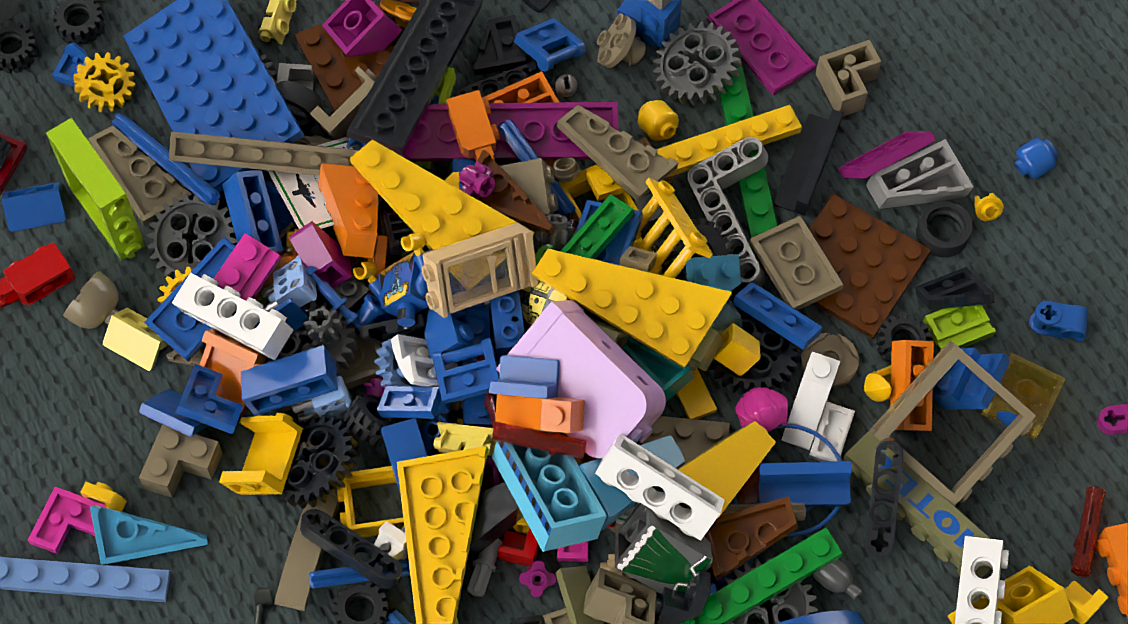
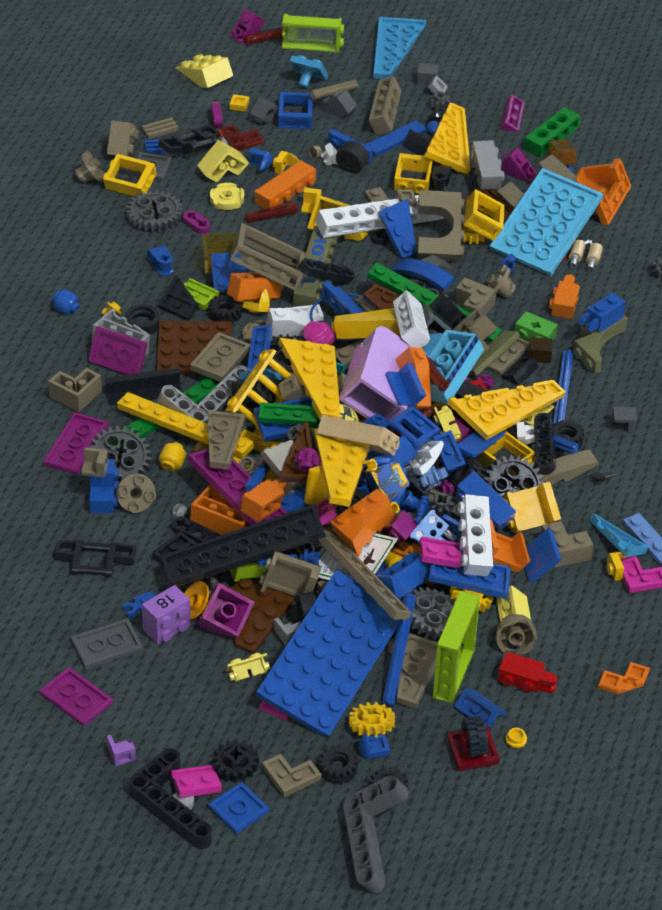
camera: 125 degrees left, 20 degrees down
(203, 405) = (529, 537): blue plate -> none
(545, 37) = (160, 525): blue plate -> none

